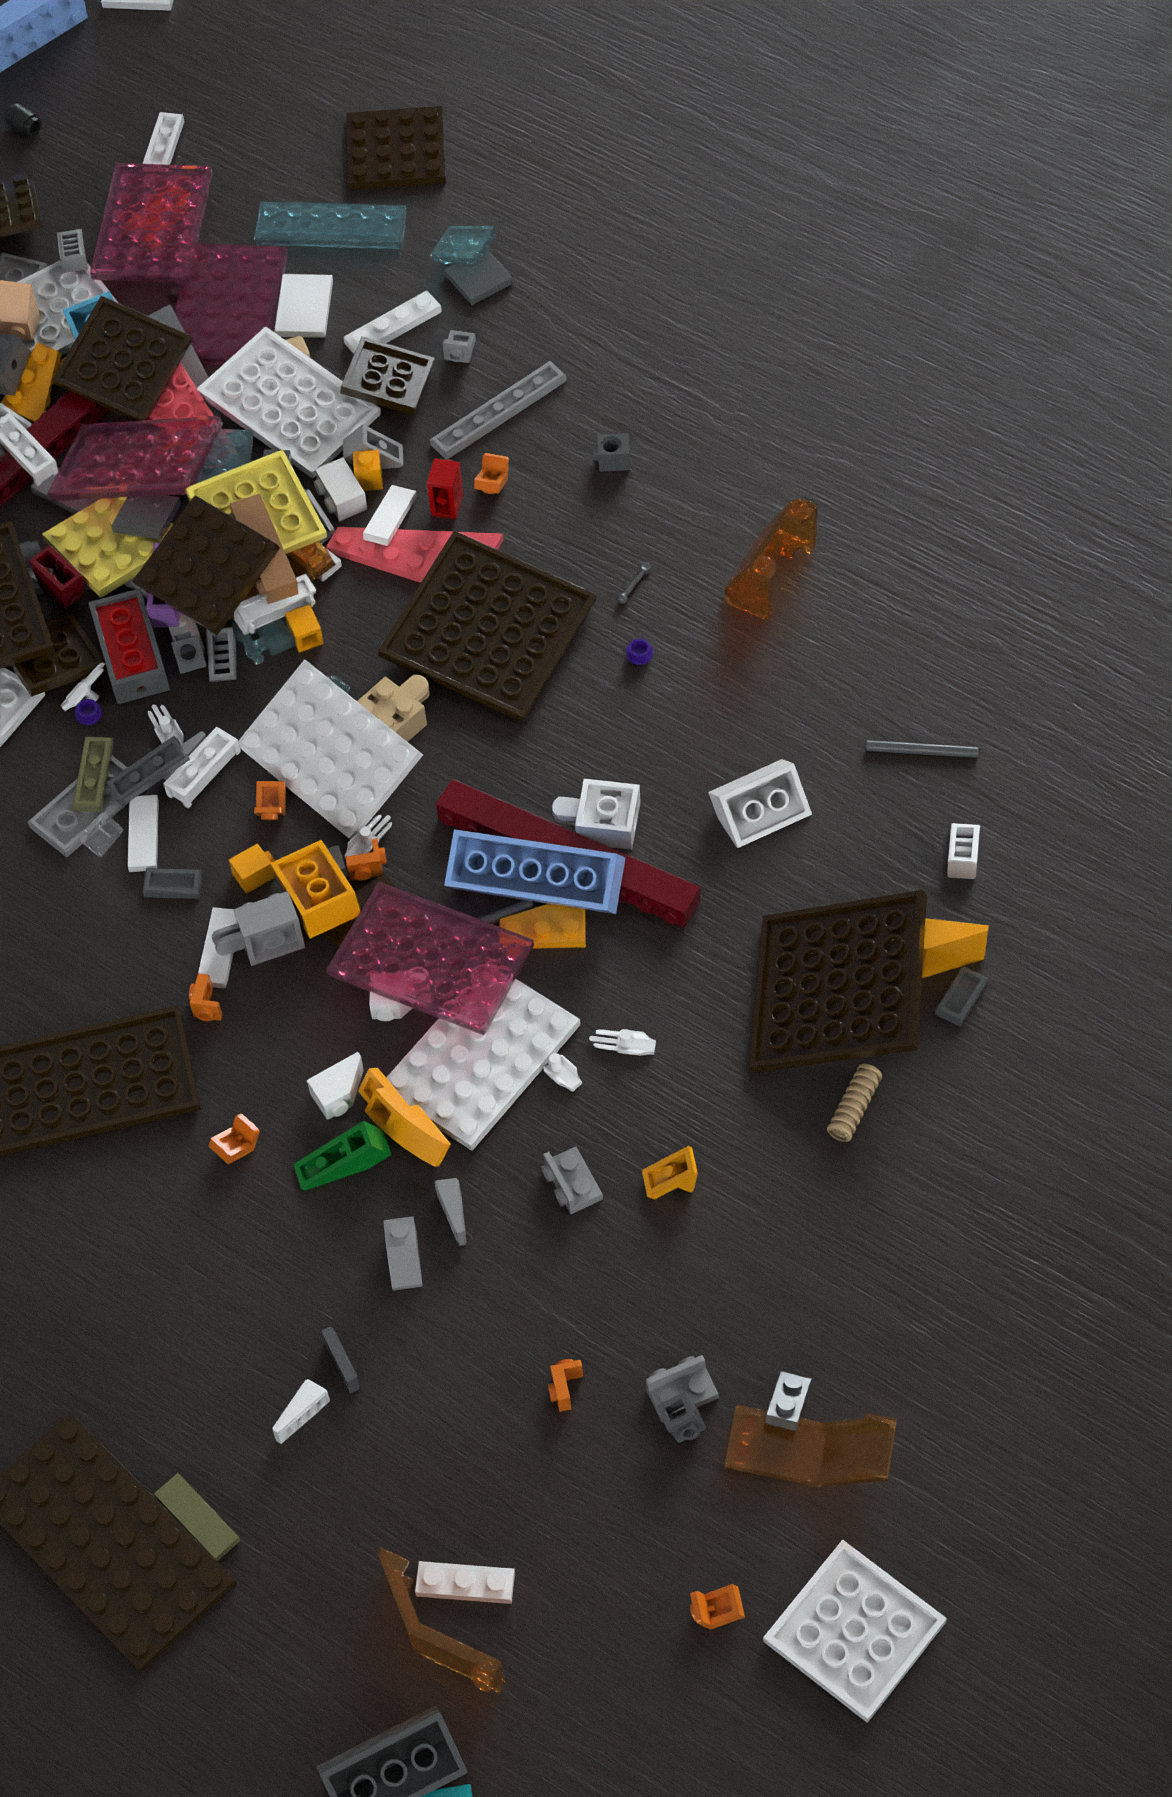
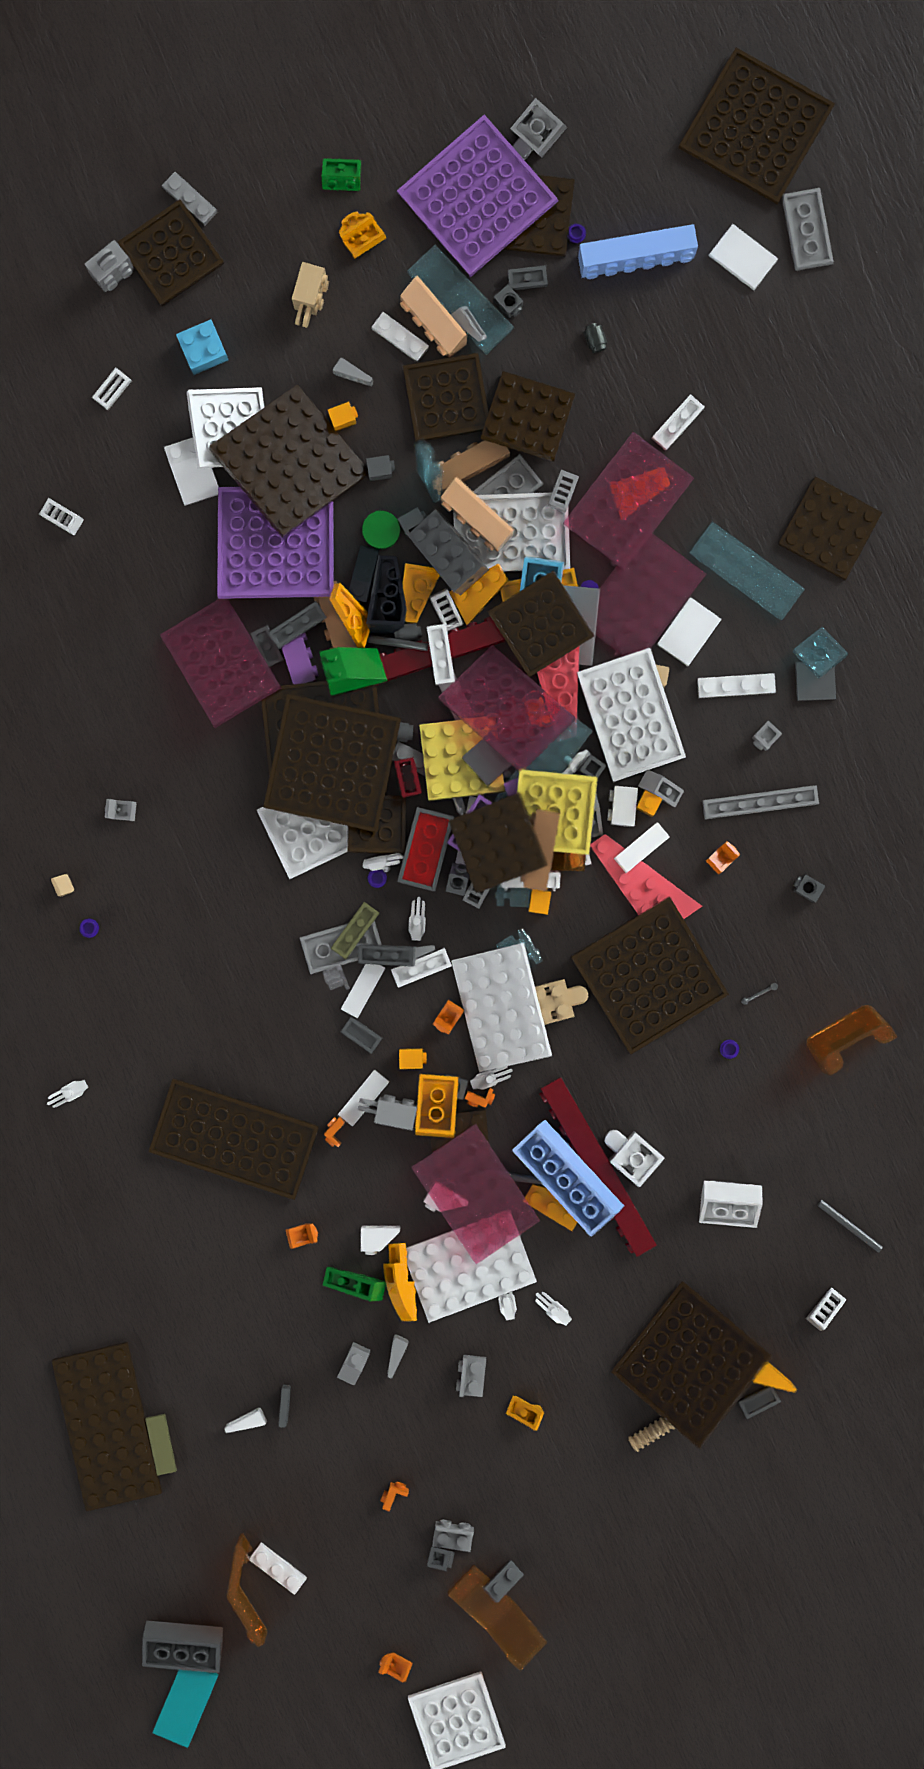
camera: 30 degrees right, 30 degrees up
(387, 375) = (705, 735): plate -> none
(445, 488) = (686, 854): red brick -> none

